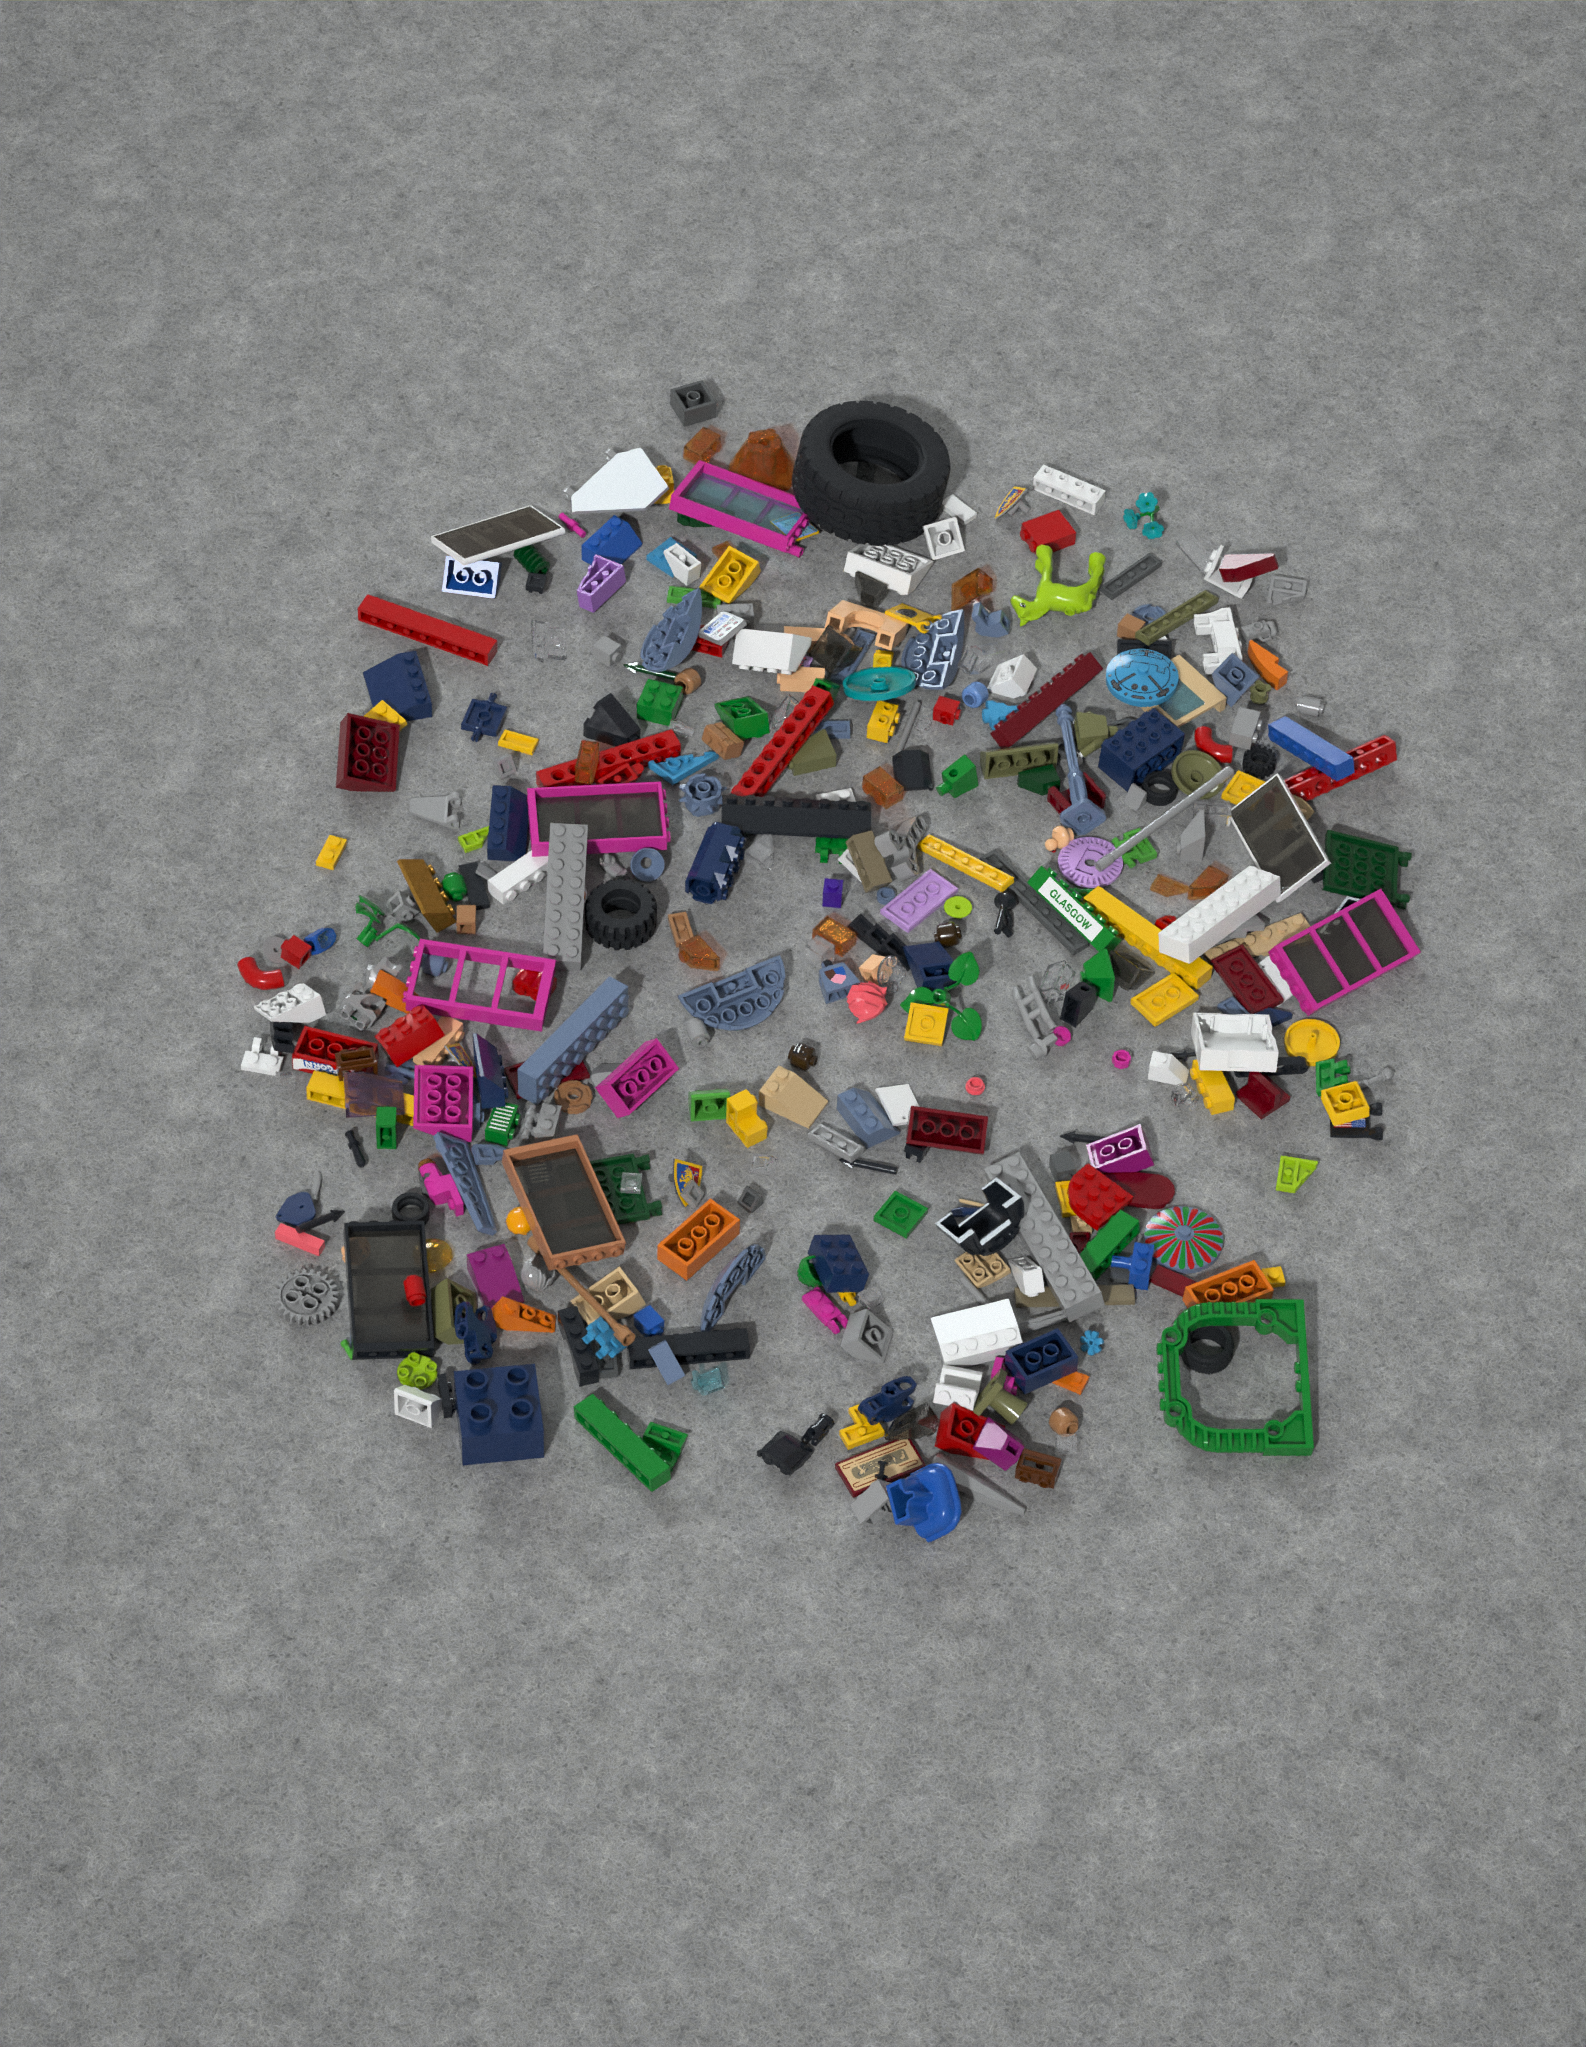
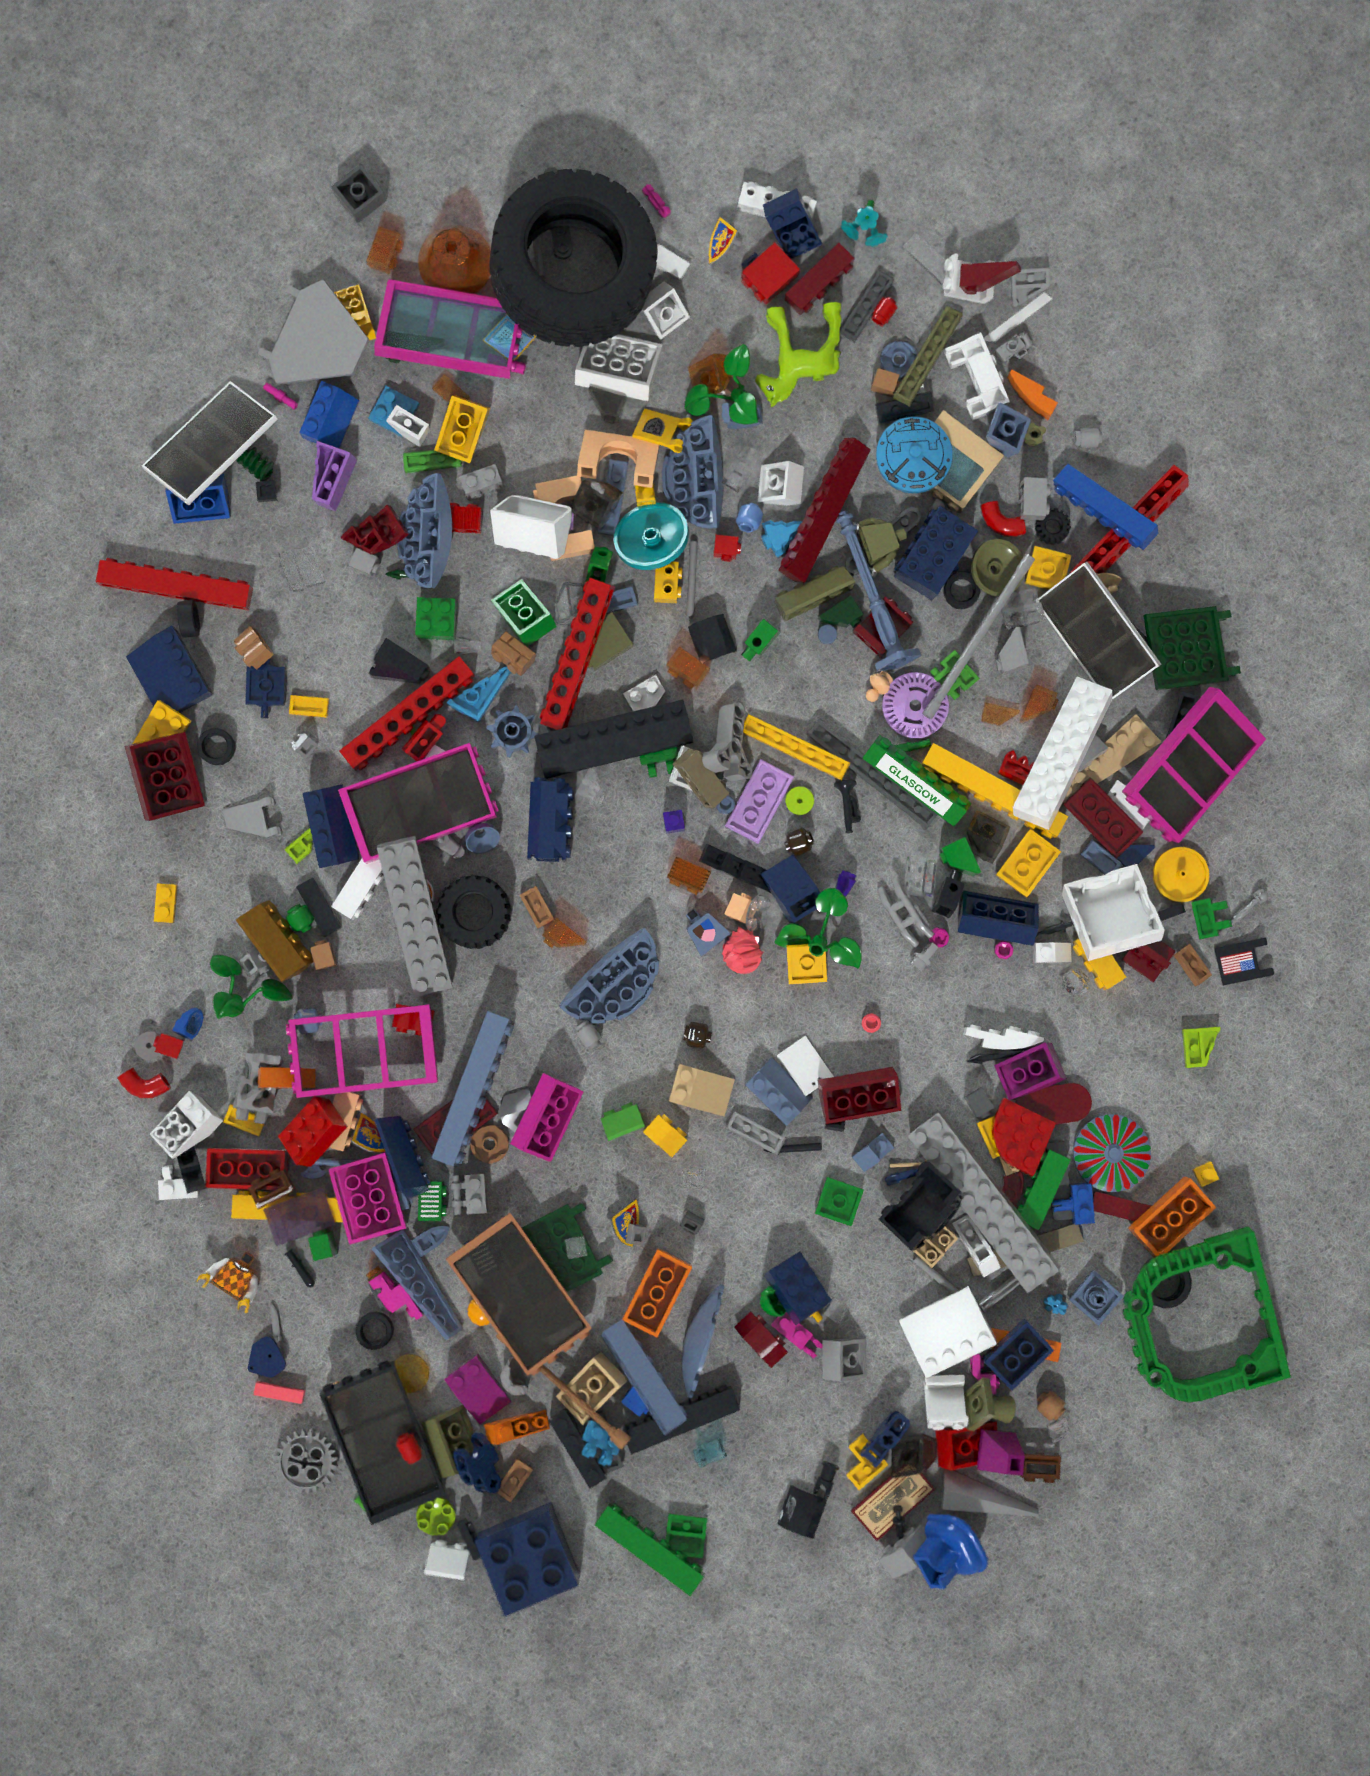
camera: 15 degrees left, 35 degrees up
(288, 1137) = (234, 1278): none -> torso
(334, 1215) = (302, 1353): black piece -> none
(343, 1027) = (248, 1126): none -> yellow tile
(422, 760) = (216, 732): none -> black tyre
(432, 651) = (188, 618): none -> black tyre
(483, 684) = (253, 648): none -> medium nougat brick
(485, 872) = (325, 888): light grey piece -> none
(509, 1356) = (514, 1479): none -> medium nougat plate
(587, 762) = (387, 732): clear orange brick -> none
(628, 633) = (377, 532): none -> dark red slope
(663, 1297) = (644, 1377): none -> sand blue brick
(666, 1362) = (666, 1448): sand blue tile -> none
(689, 680) = (456, 580): medium nougat head -> none
(722, 628) = (474, 513): tile -> none
(789, 1302) = (764, 1343): none -> dark red brick
(945, 1185) = (873, 1152): none -> sand blue slope
(959, 466) = (656, 201): none -> dark pink axle
(986, 974) = (845, 882): none -> dark purple cone
(991, 605) = (745, 406): none -> green plant
(1022, 794) = (827, 634): none -> sand blue tile
(1078, 499) = (792, 224): none -> dark blue slope
(1094, 1124) = (1011, 1037): none -> white slope
(1104, 541) = (819, 279): none -> dark red brick
(1121, 1033) = (998, 918): none -> dark blue slope
(1133, 1347) = (1095, 1297): none -> sand blue plate
(1135, 797) = (940, 609): light grey slope -> none
(1145, 580) = (884, 311): none -> red brick
(1270, 614) = (1019, 317): none -> white sticker
(1304, 1109) = (1192, 965): none -> medium nougat plate
(1345, 1103) = (1236, 939): yellow brick -> none

